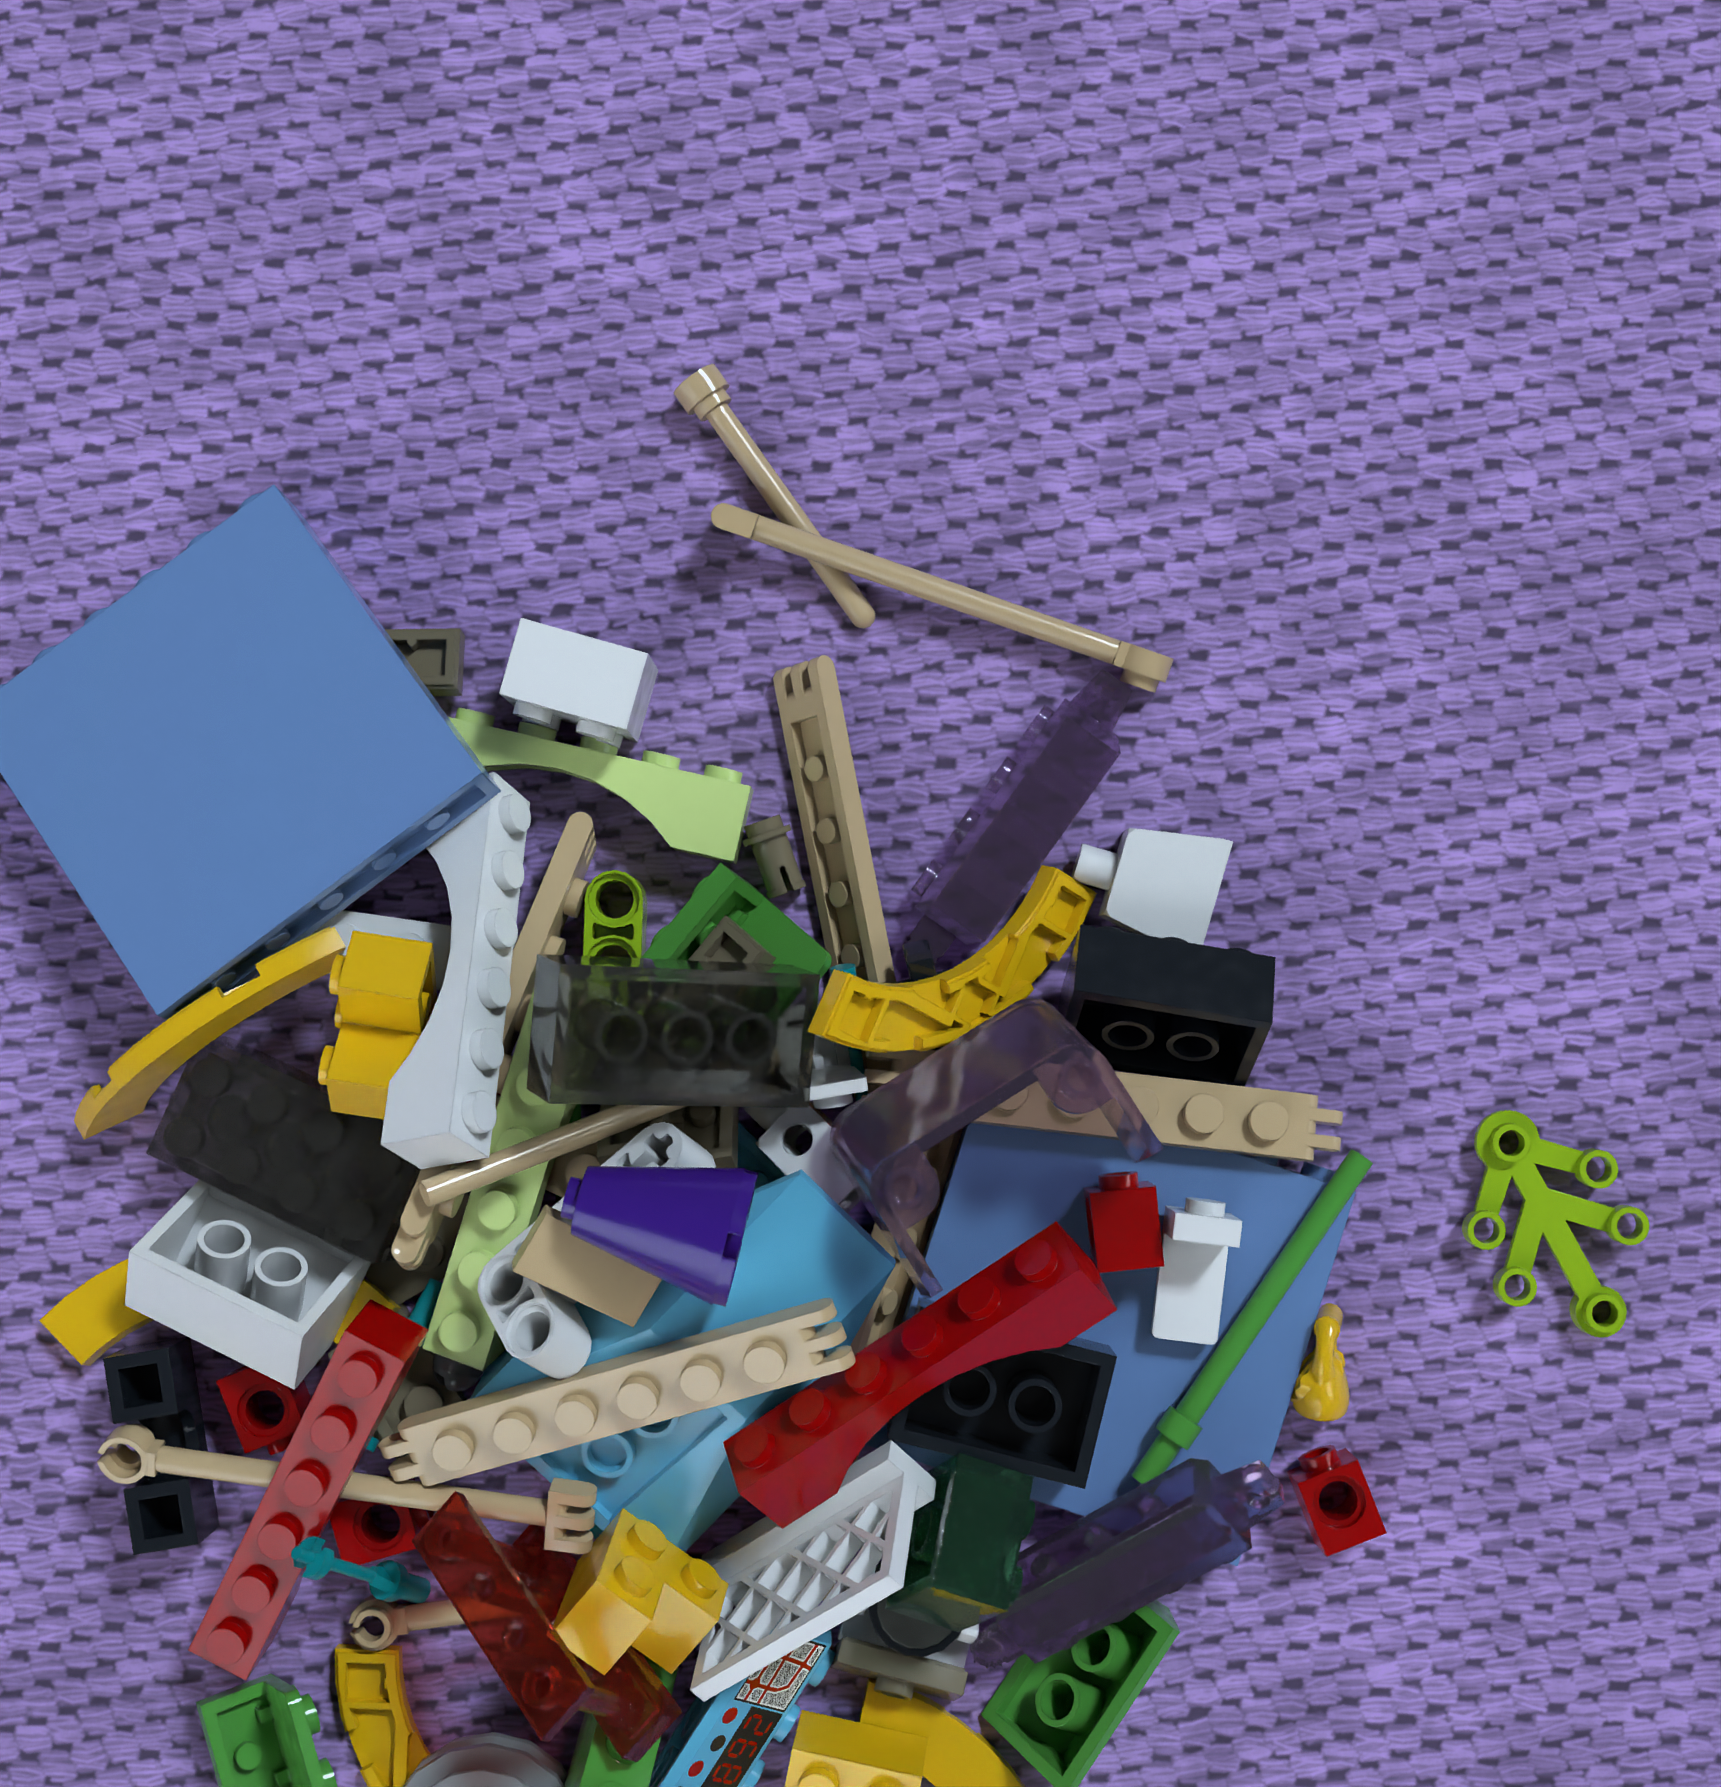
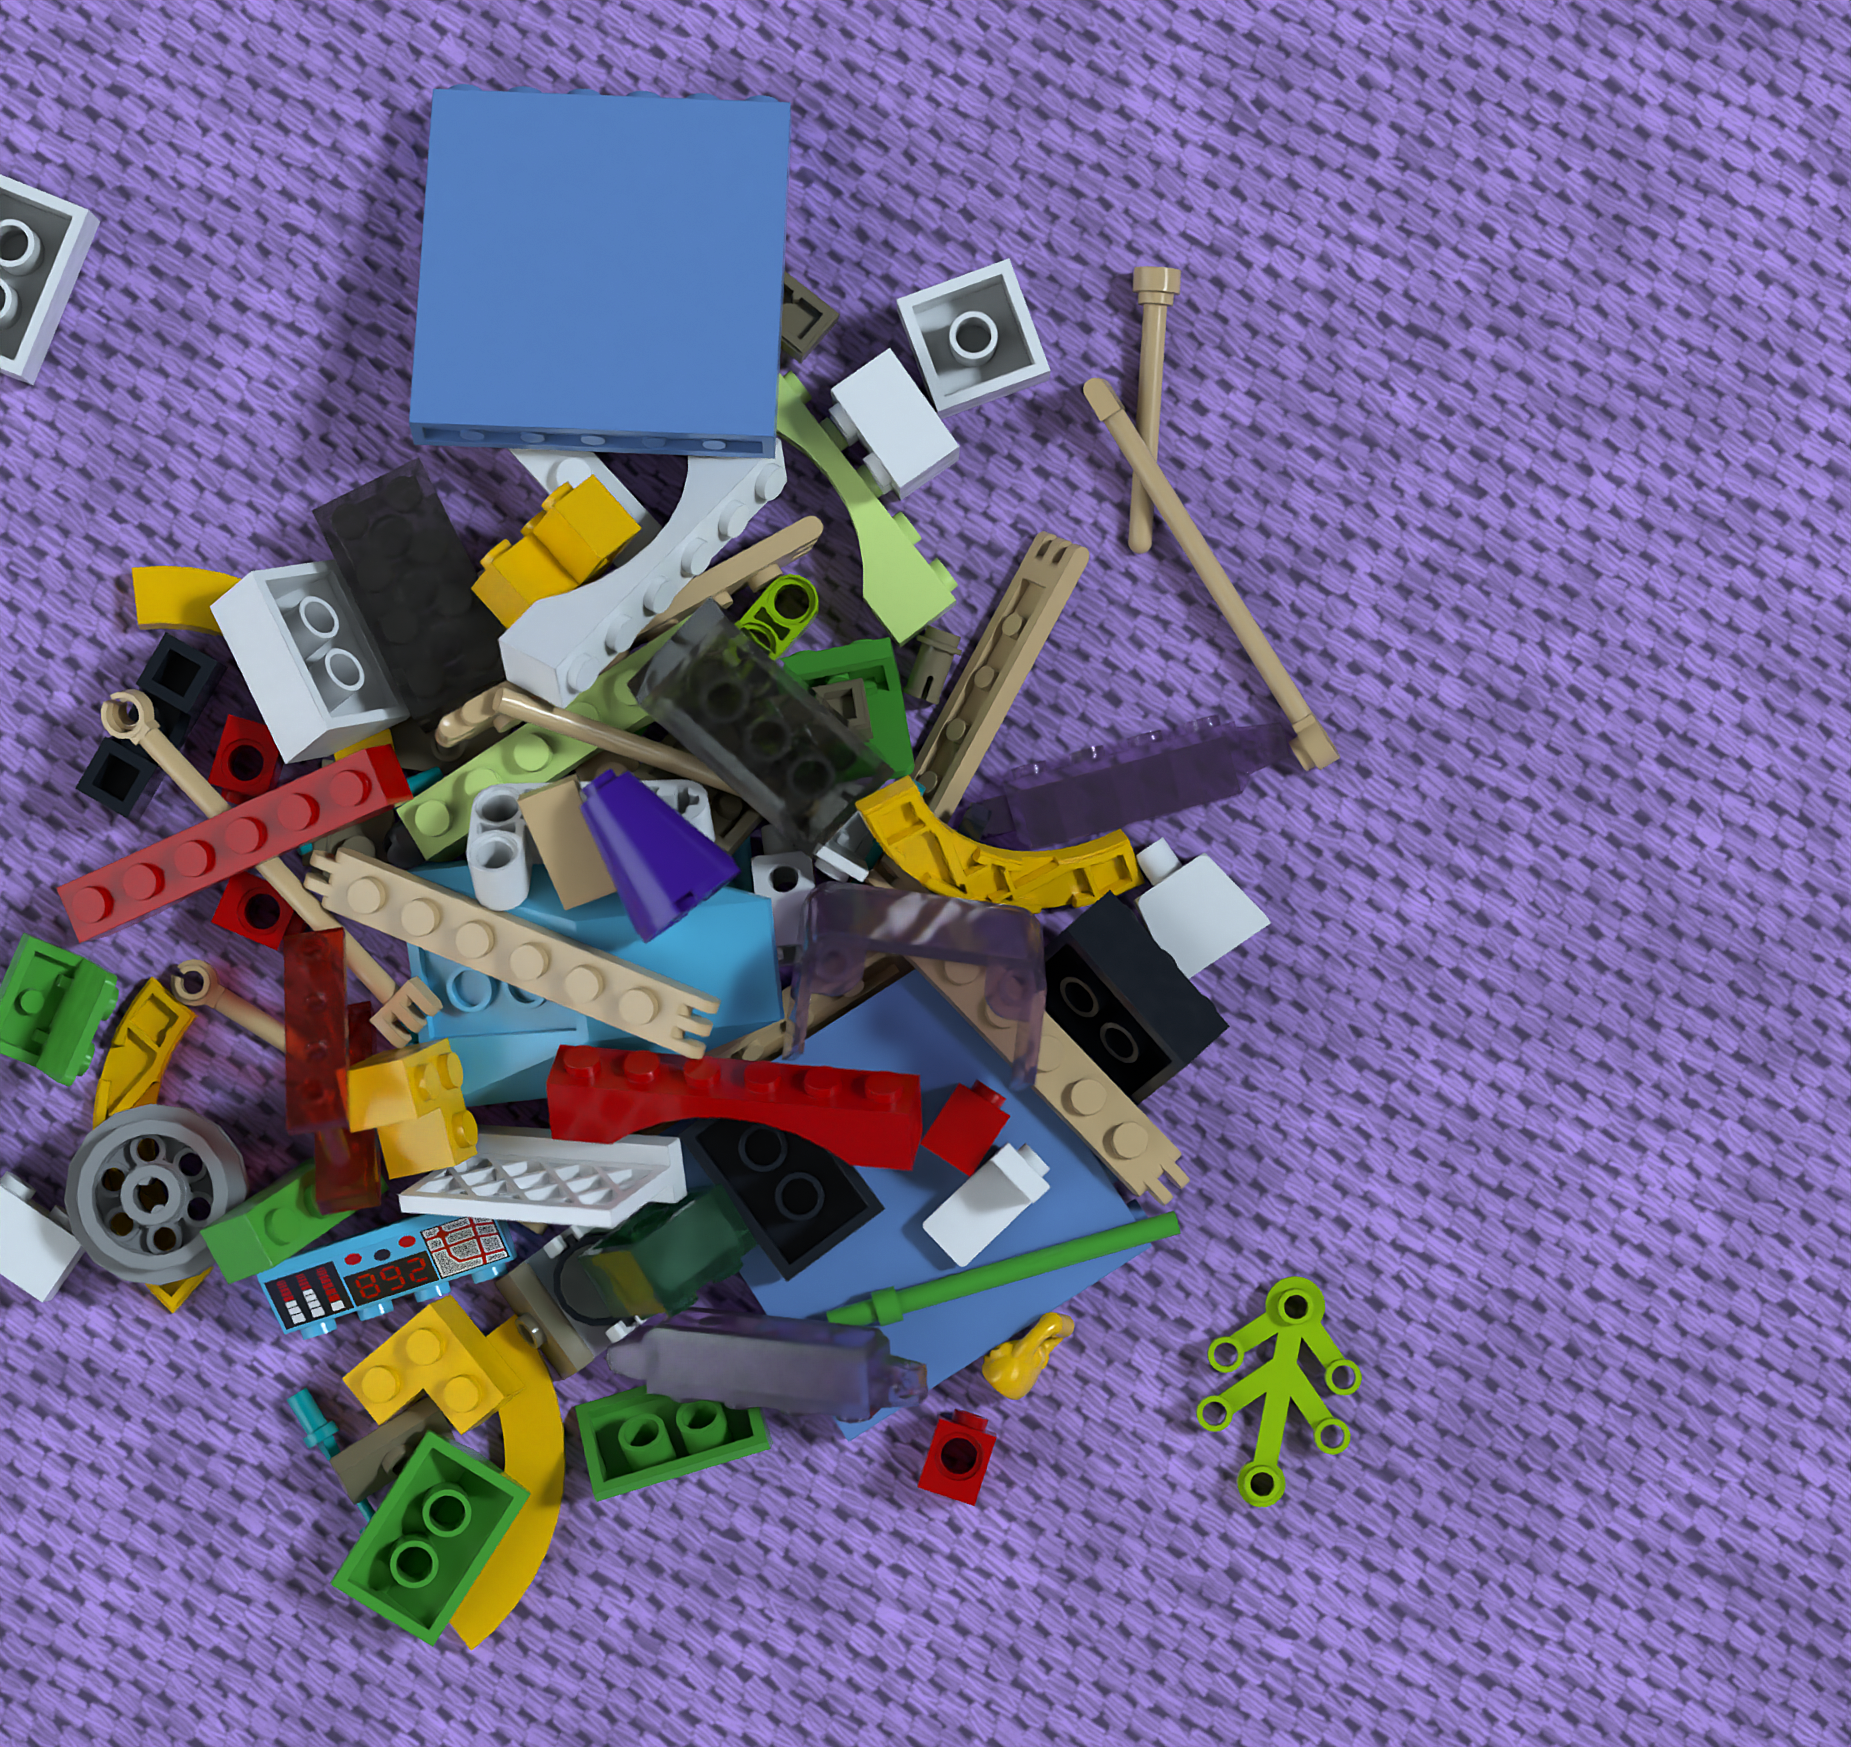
camera: 45 degrees right, 0 degrees up
(184, 1034) = (424, 451): yellow tile -> none
(386, 1580) = (233, 955): teal piece -> none
(587, 557) = (973, 339): none -> white brick

